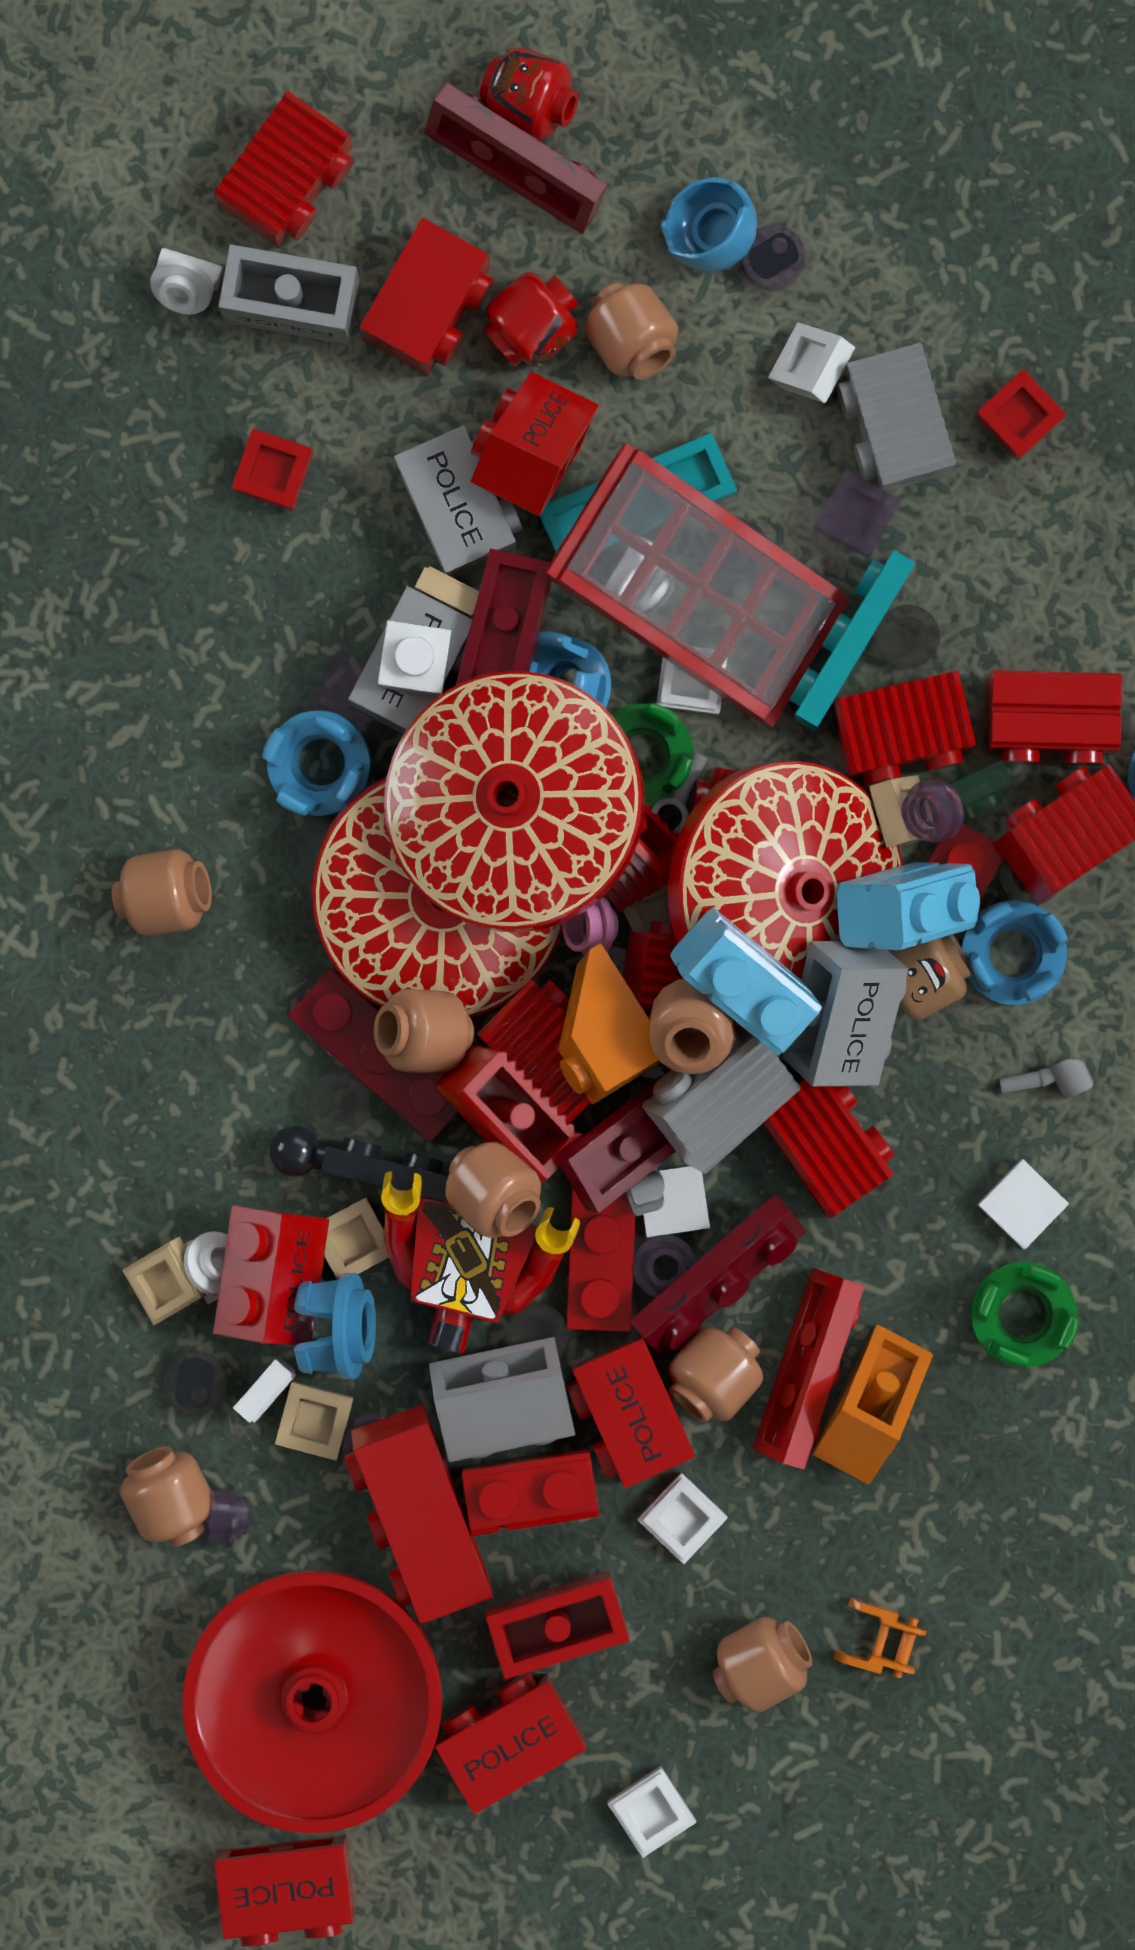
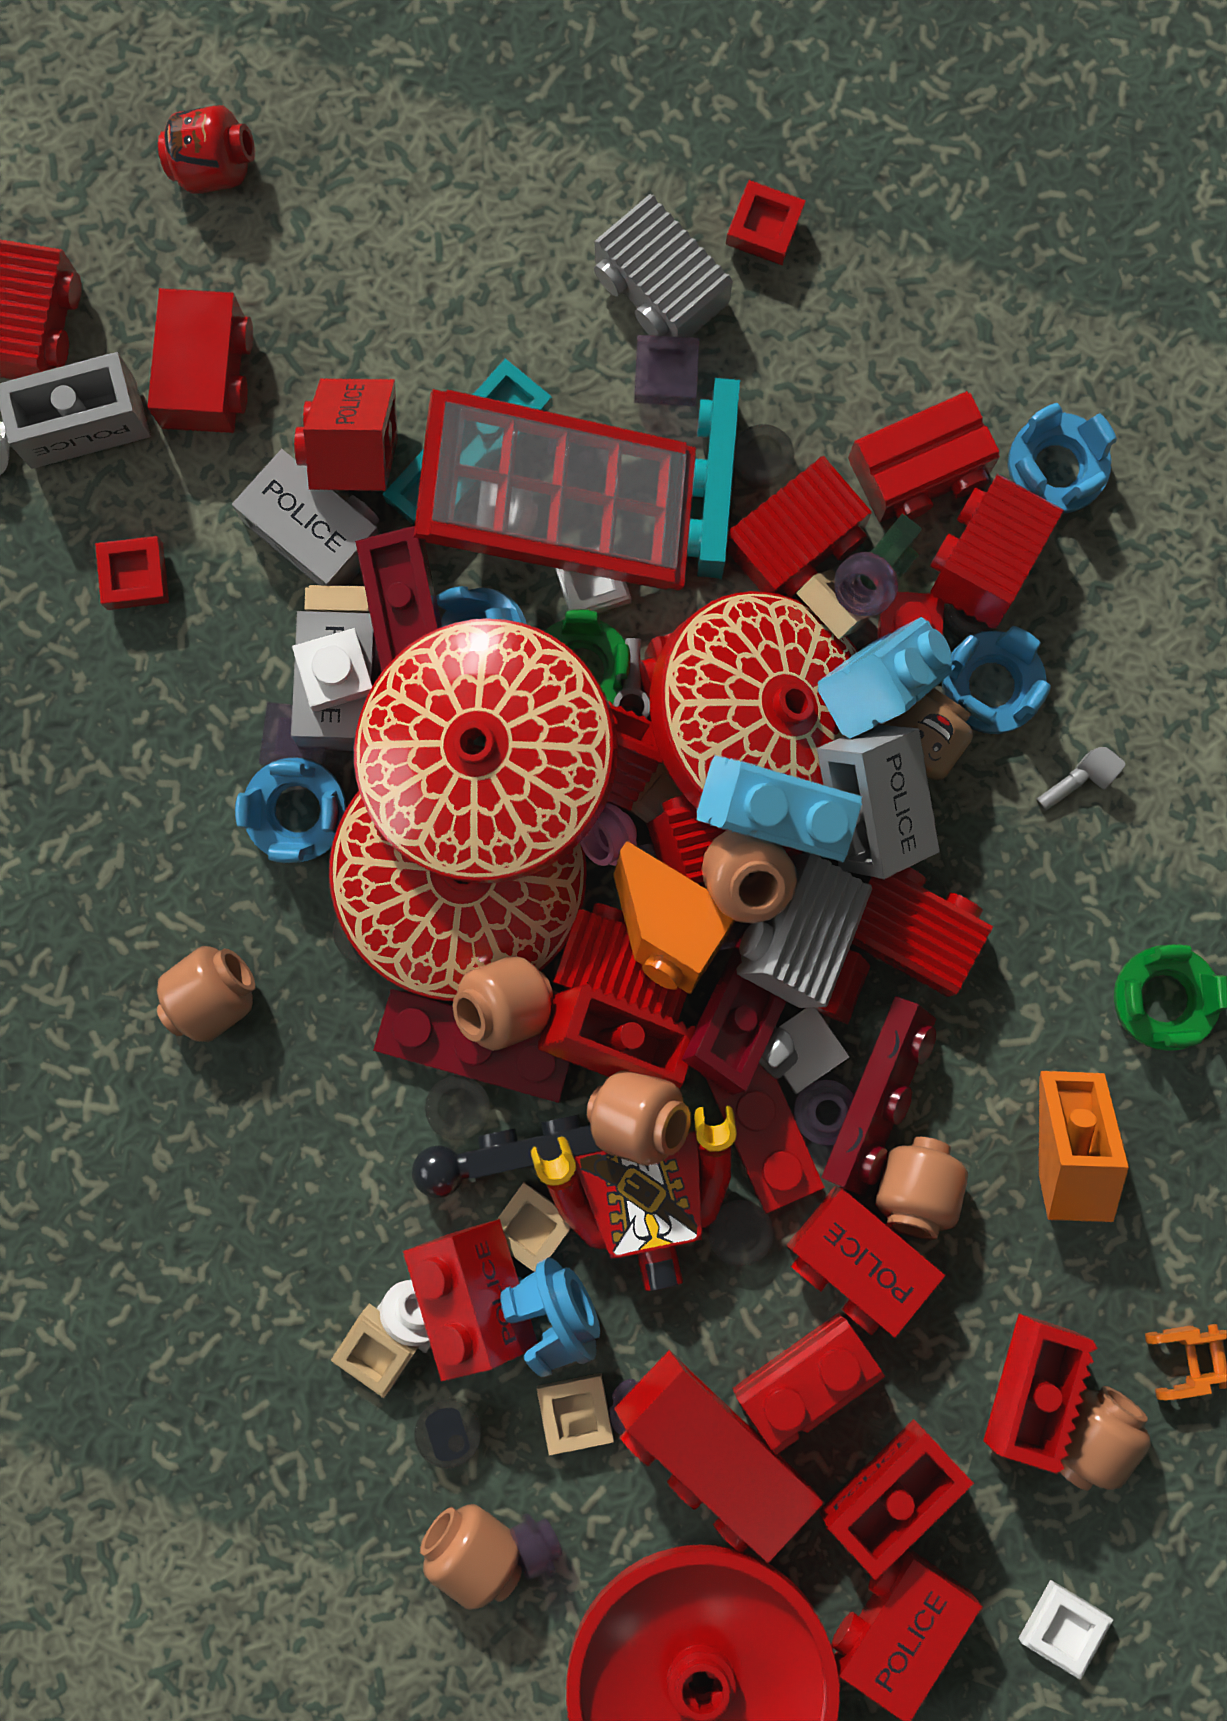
camera: 25 degrees left, 5 degrees down
(265, 1390) = (516, 1409): white tile -> none
(501, 1399) = (739, 1310): light grey brick -> none
(515, 158) = (219, 208): dark red plate -> none
(532, 319) = (300, 336): red head -> none
(631, 330) = (393, 305): nougat head -> none
(682, 1518) = (956, 1336): white tile -> none
(710, 225) = (418, 185): dark azure hair -> none
(727, 1597) = (1039, 1393): none -> red brick
(738, 1165) = (847, 988): none -> red plate
(774, 259) = (486, 193): tile -> none
(808, 1368) = (1003, 1142): red plate -> none
(811, 362) = (563, 260): white plate -> none
(1022, 1204) = (1115, 899): white tile -> none

